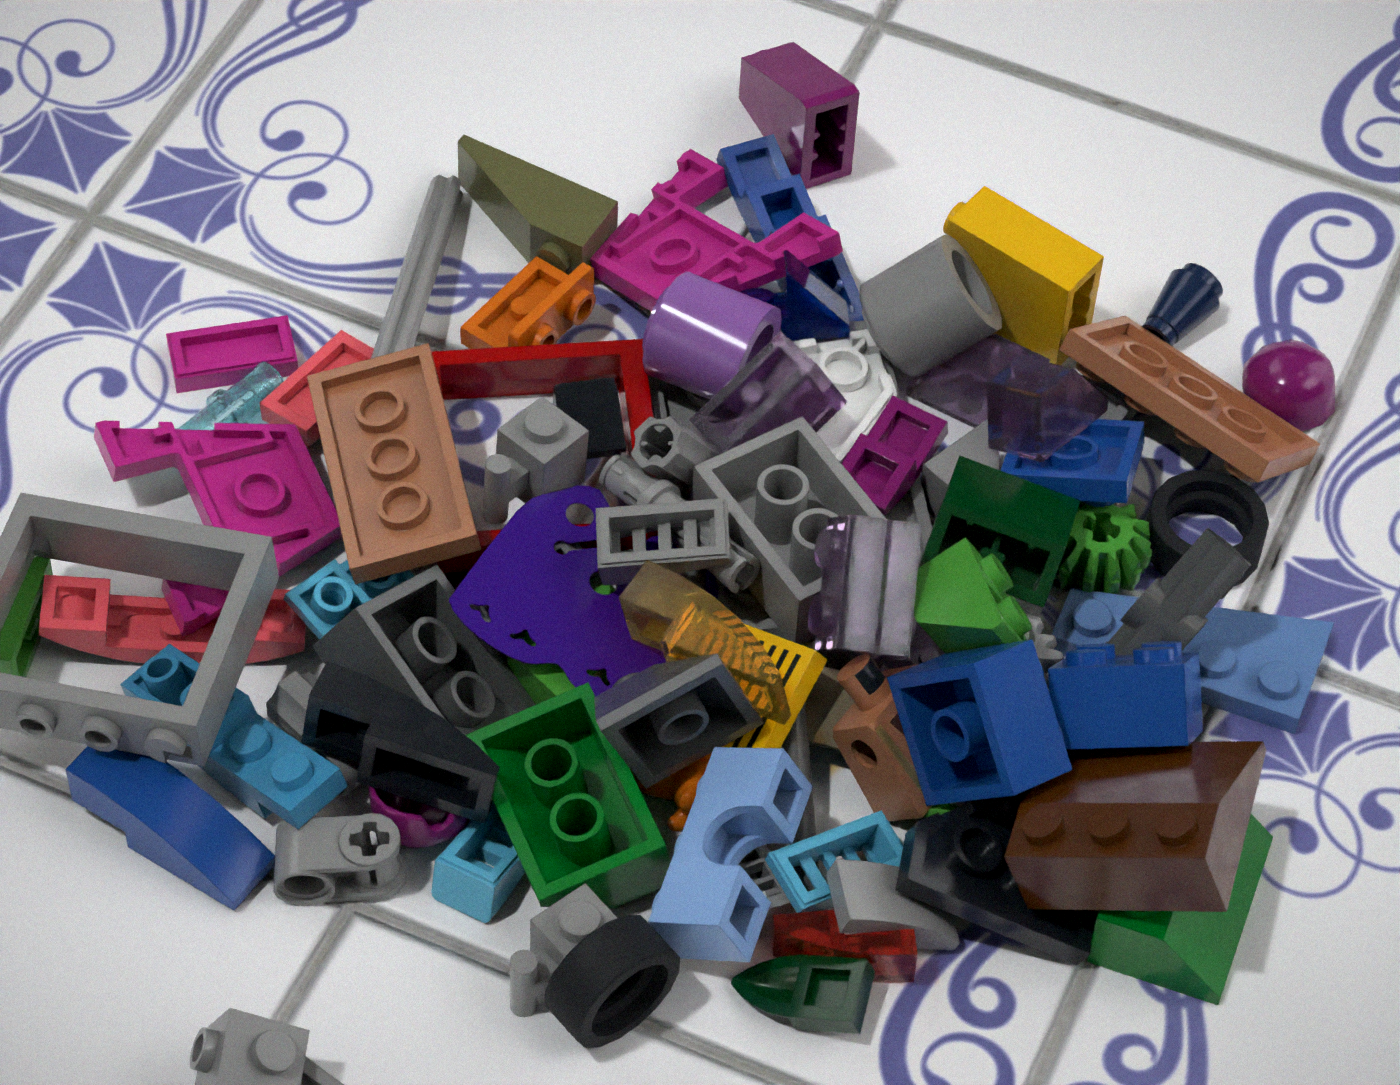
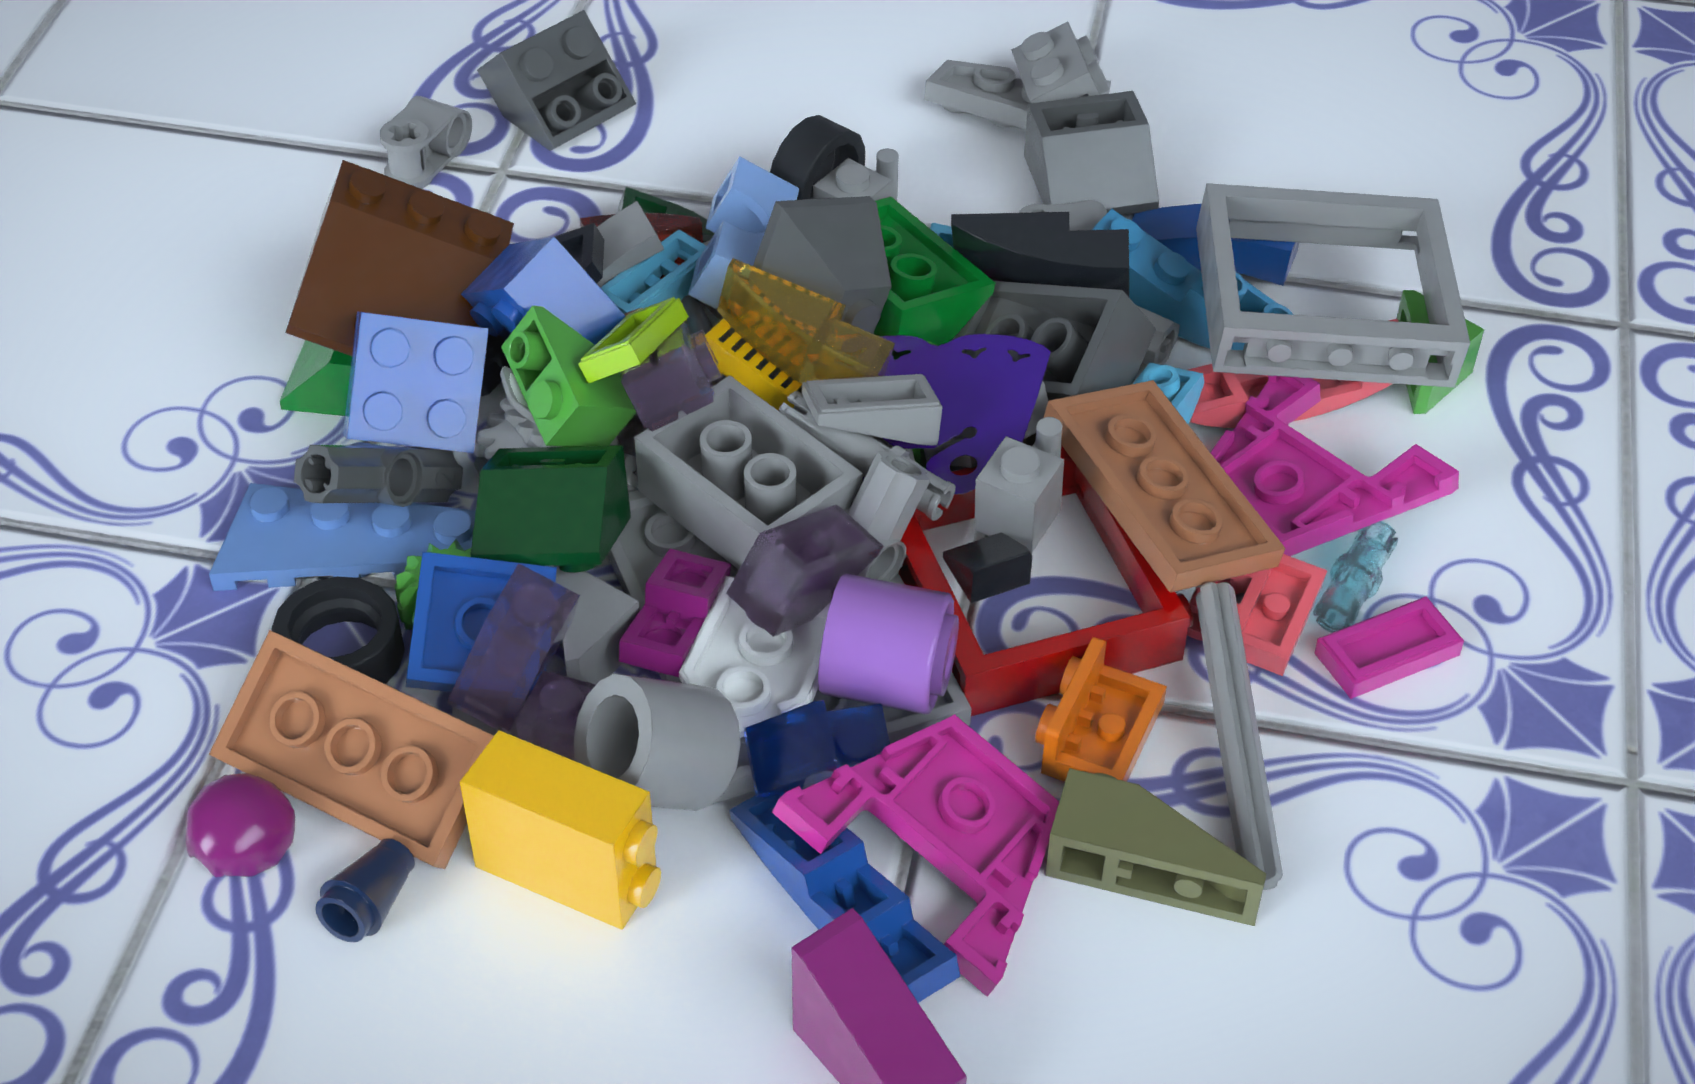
camera: 170 degrees right, 5 degrees down
(260, 963) = (1092, 152): none -> slope
(898, 601) = (633, 339): none -> lime tile

